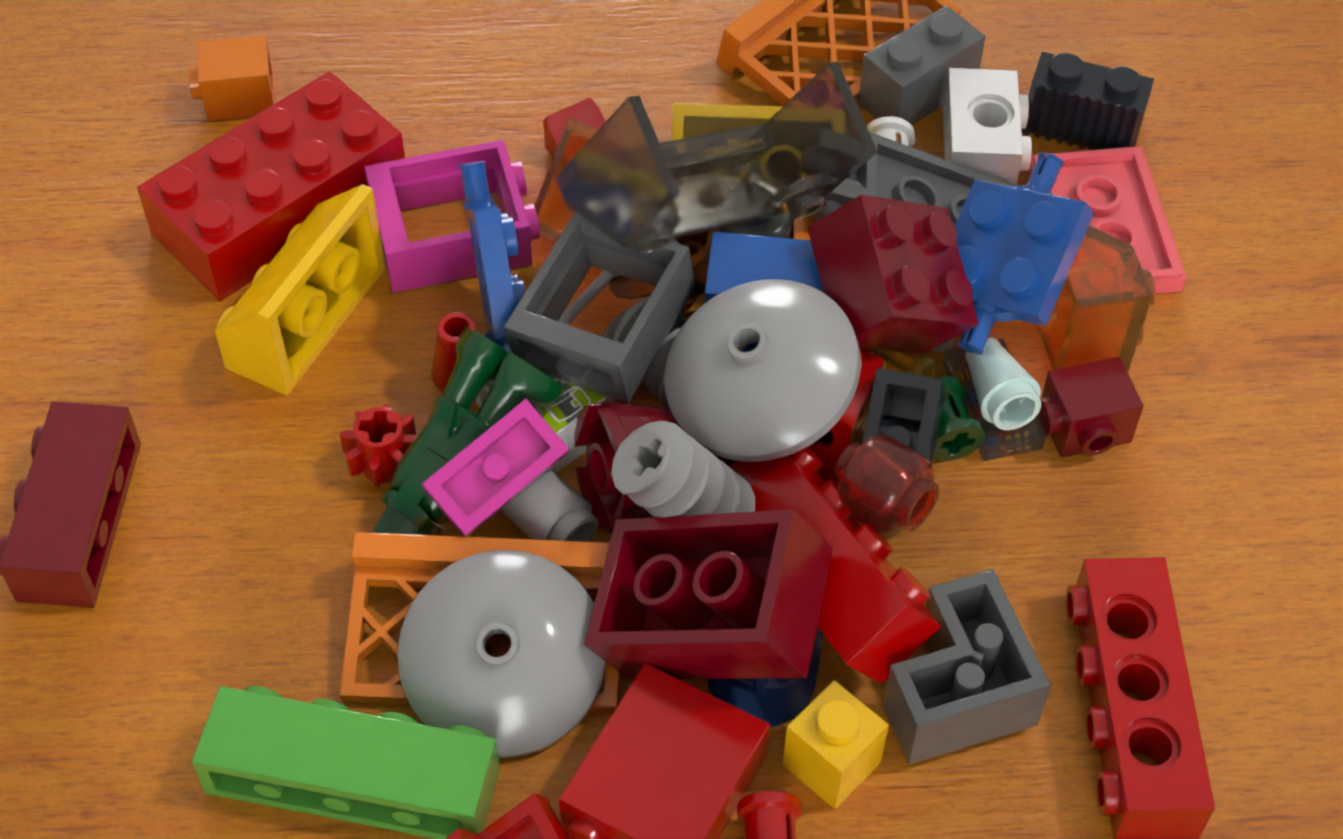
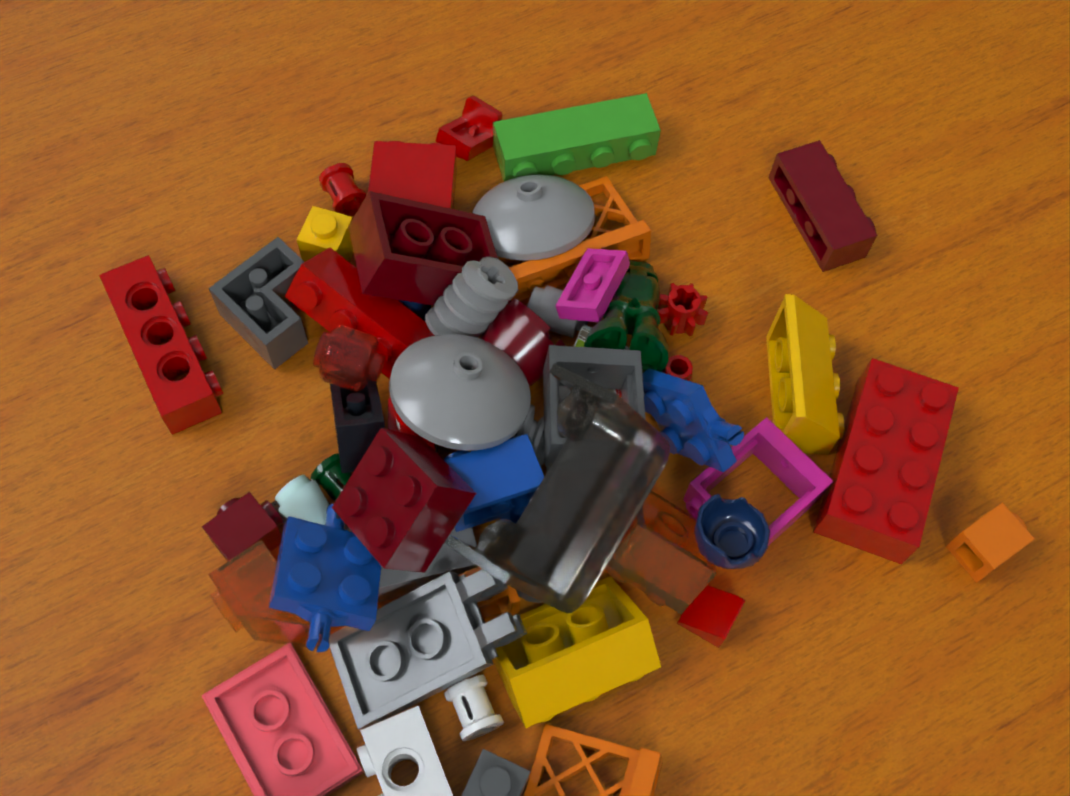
camera: 150 degrees right, 10 degrees up
(529, 137) = (731, 532): none -> dark blue hair

